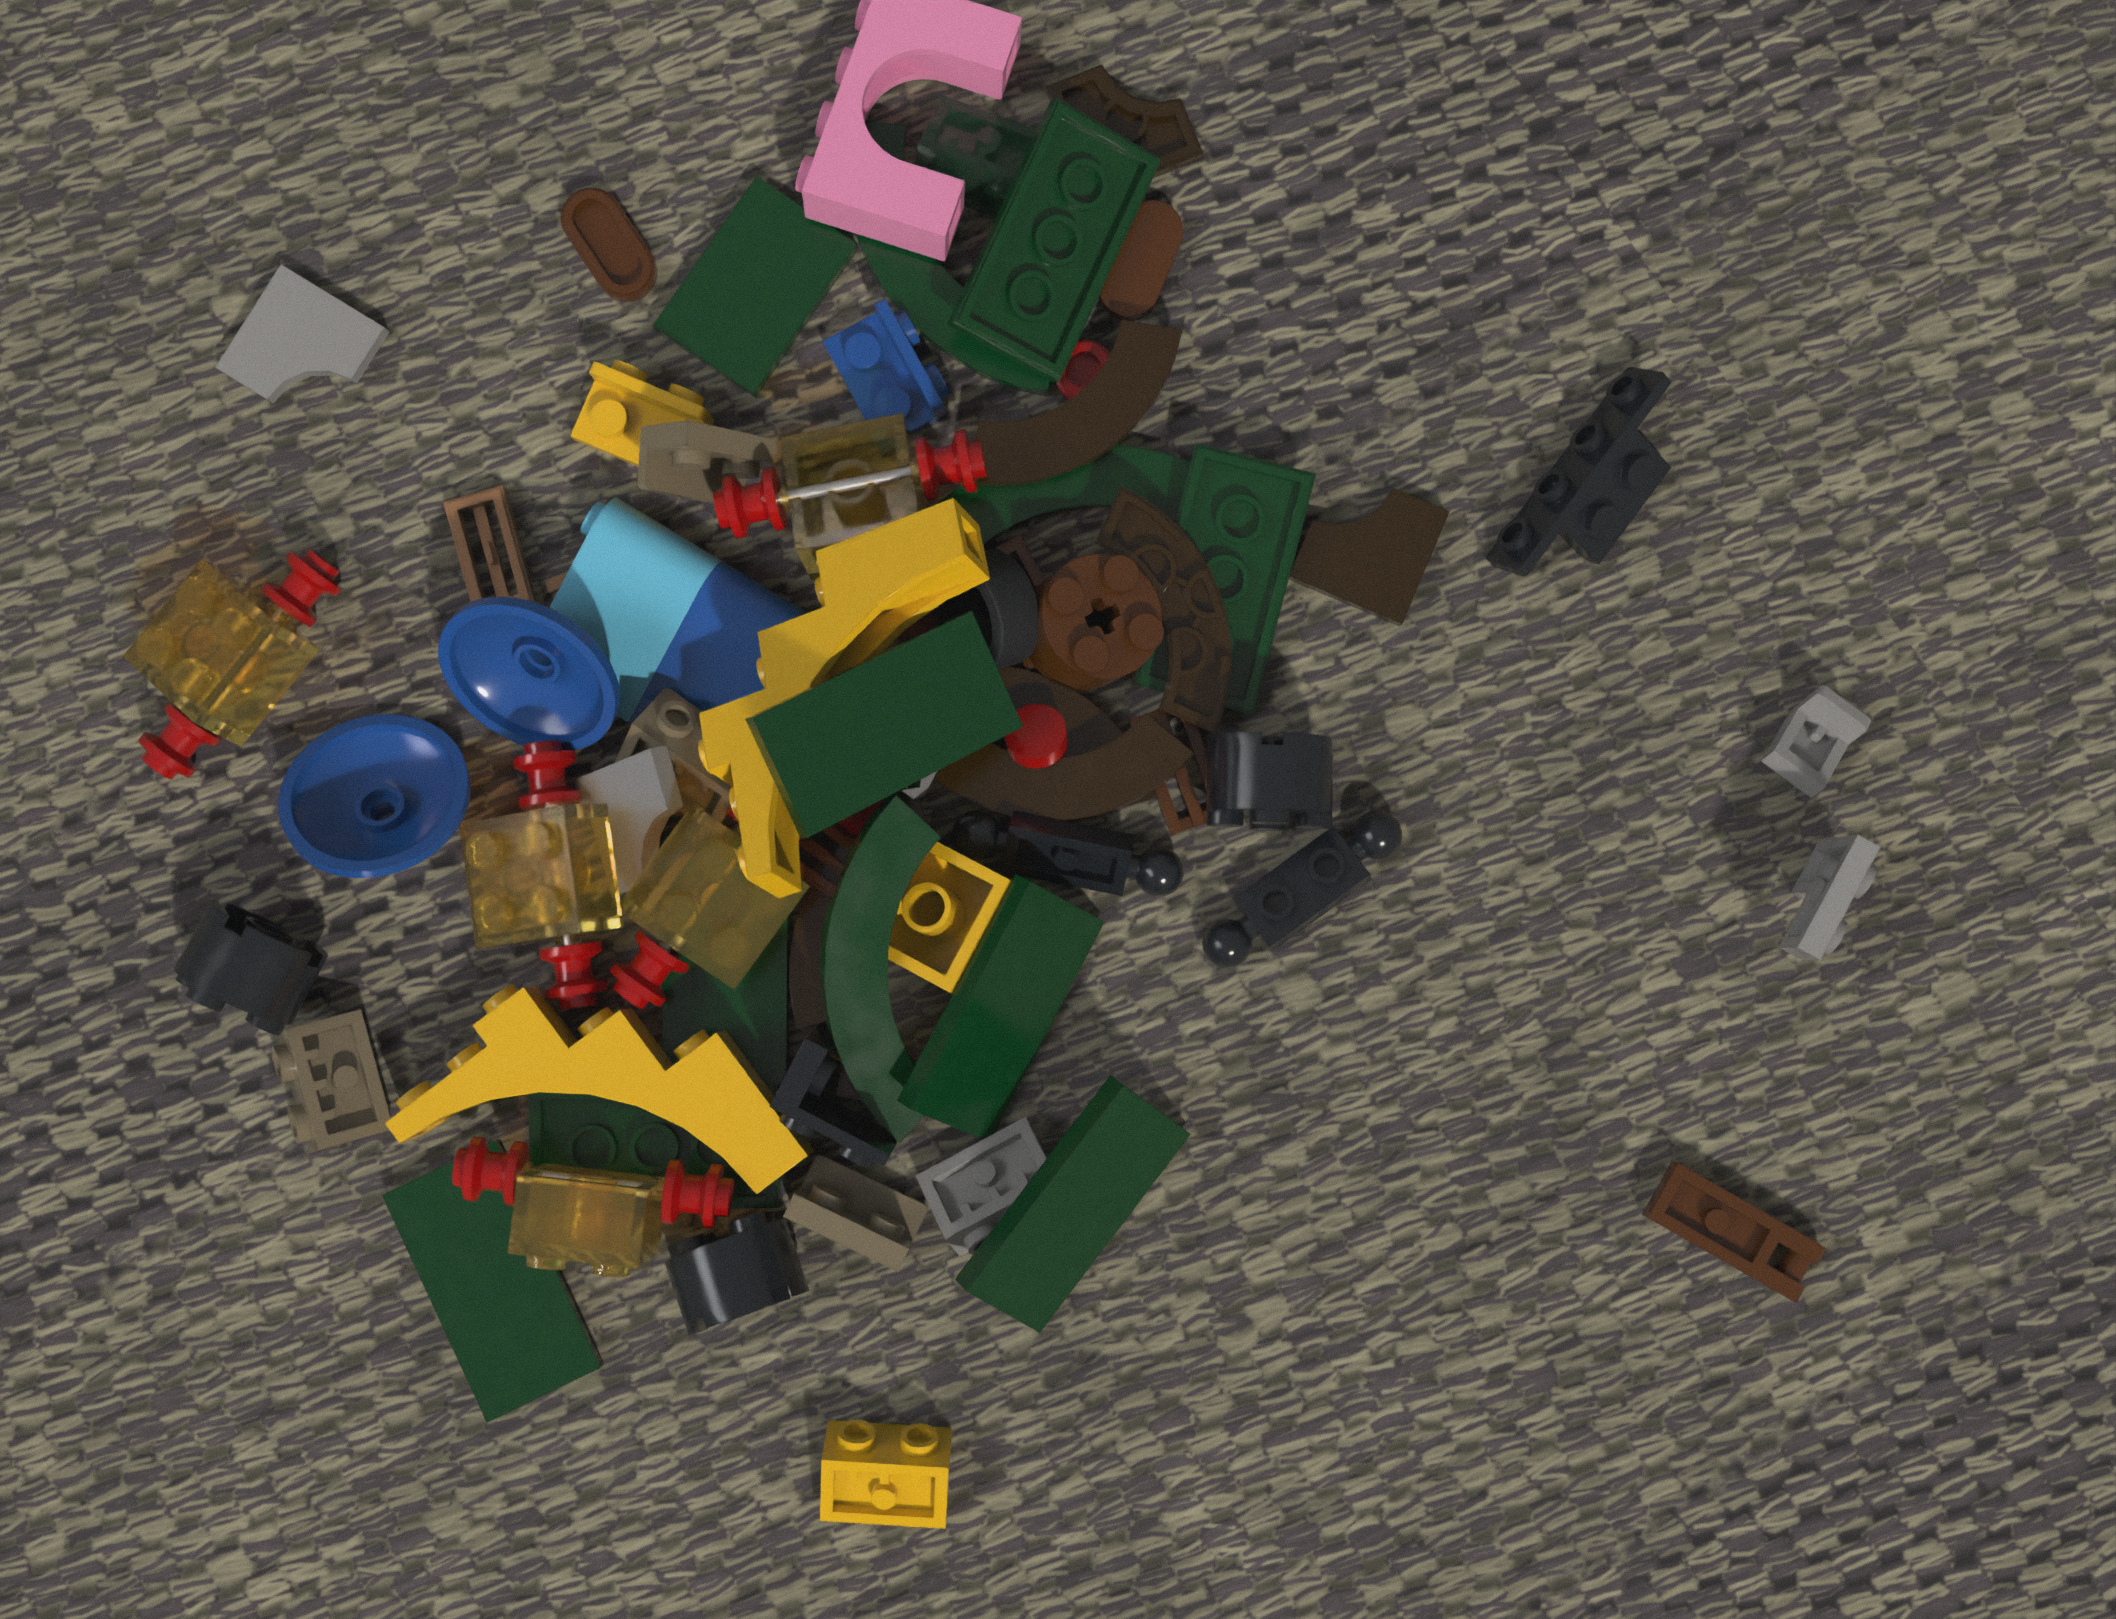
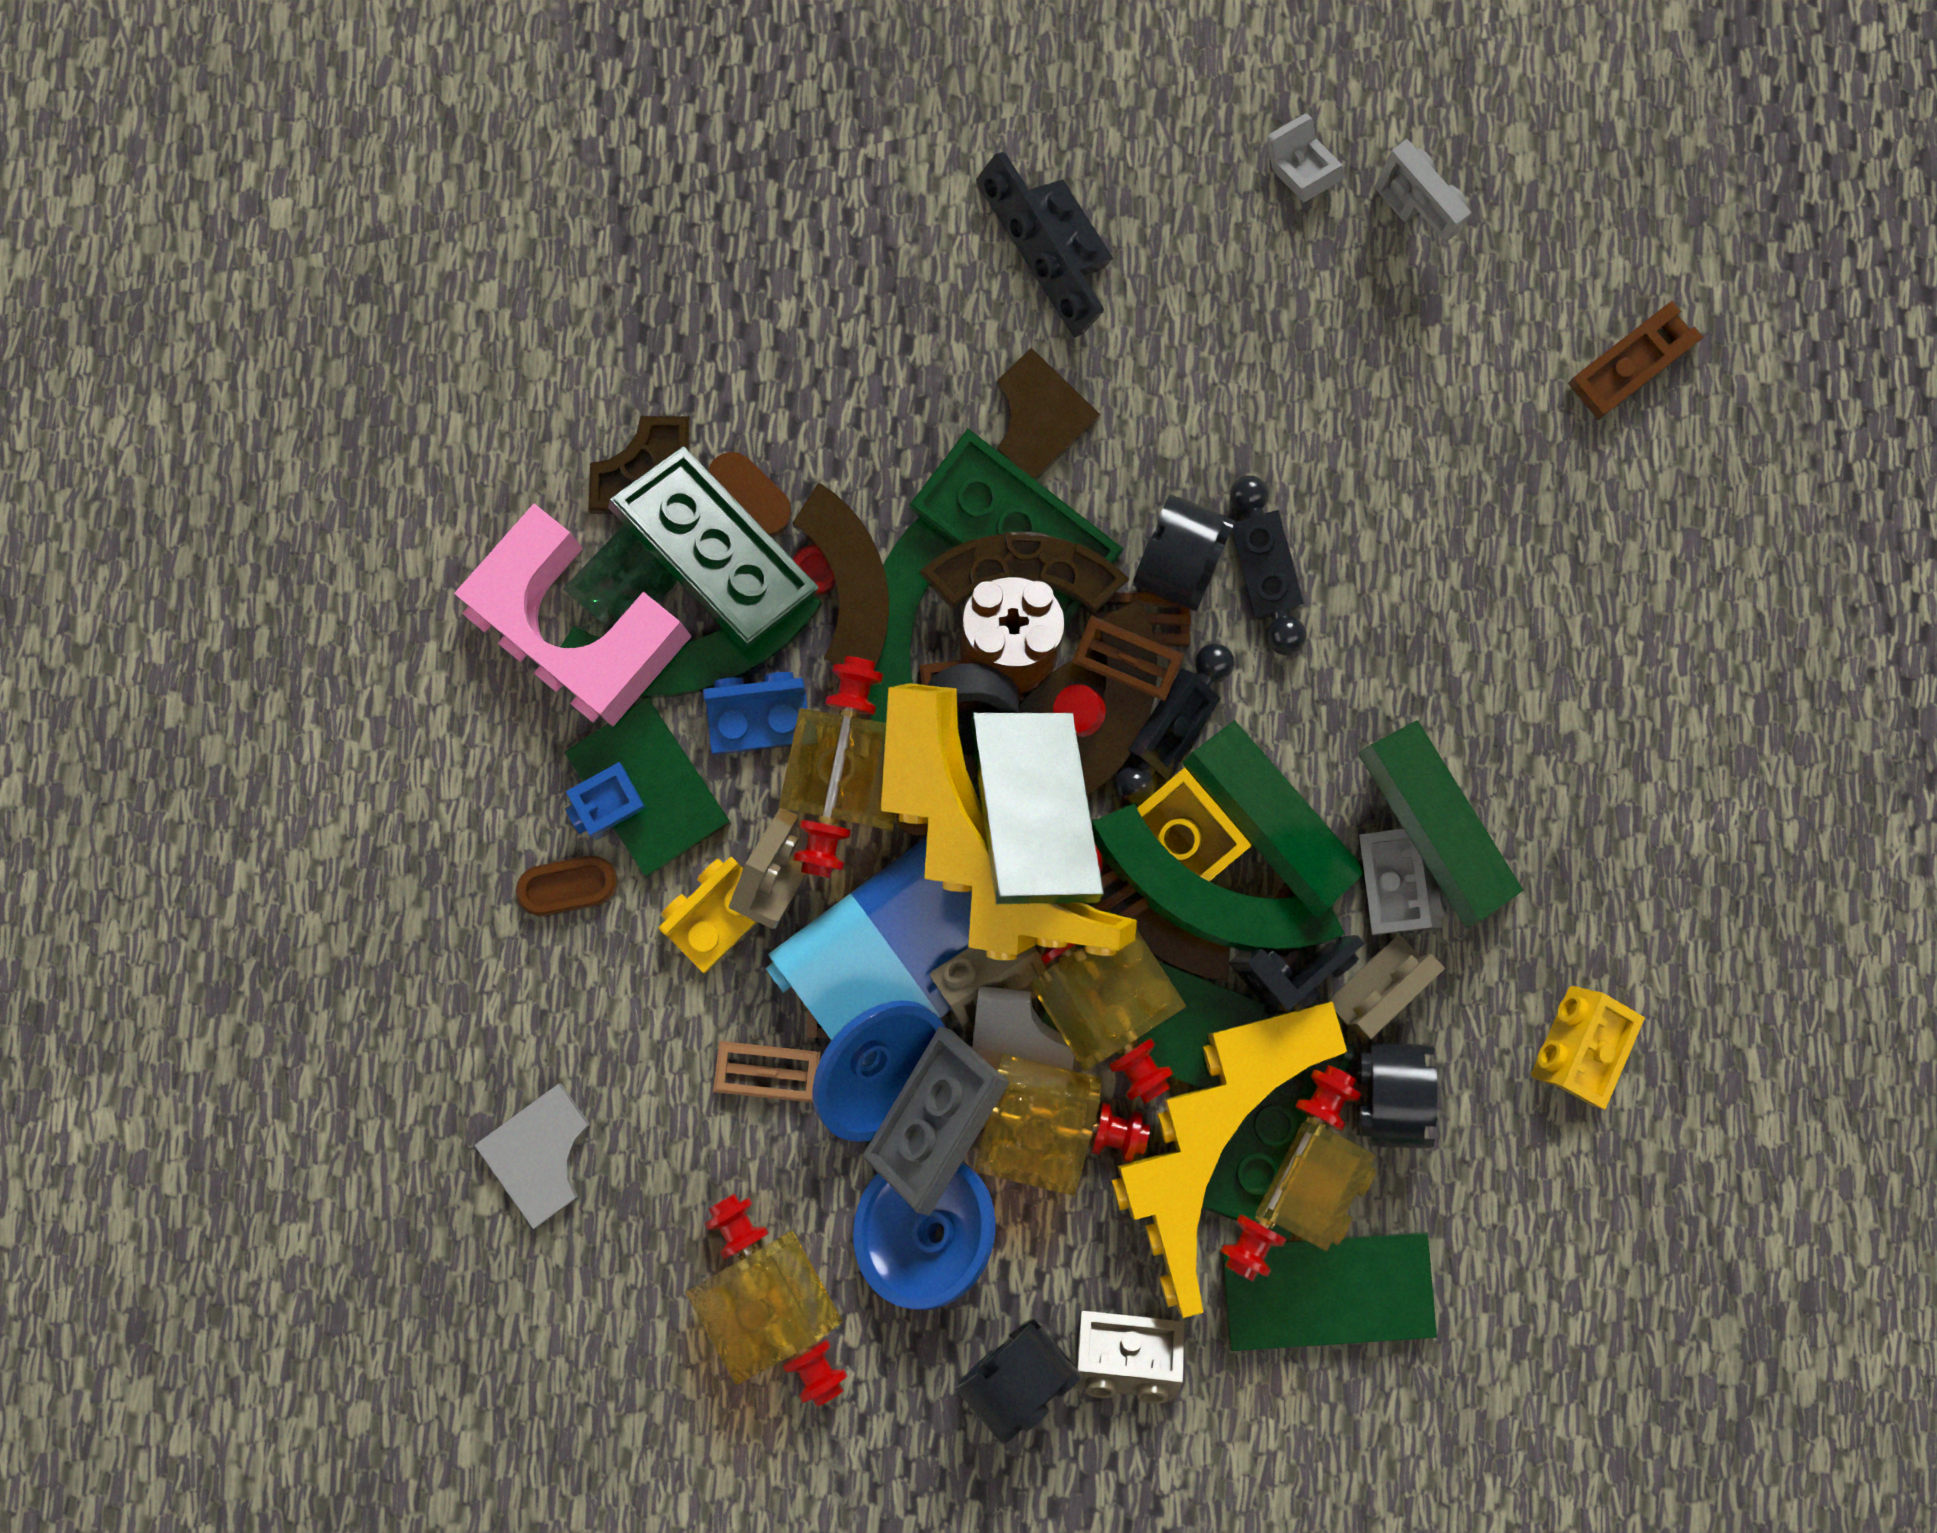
camera: 70 degrees left, 5 degrees down
(496, 757) = (935, 1120): none -> dark grey tile
(714, 242) = (603, 801): none -> blue bracket
(1116, 820) = (1166, 674): none -> reddish brown tile

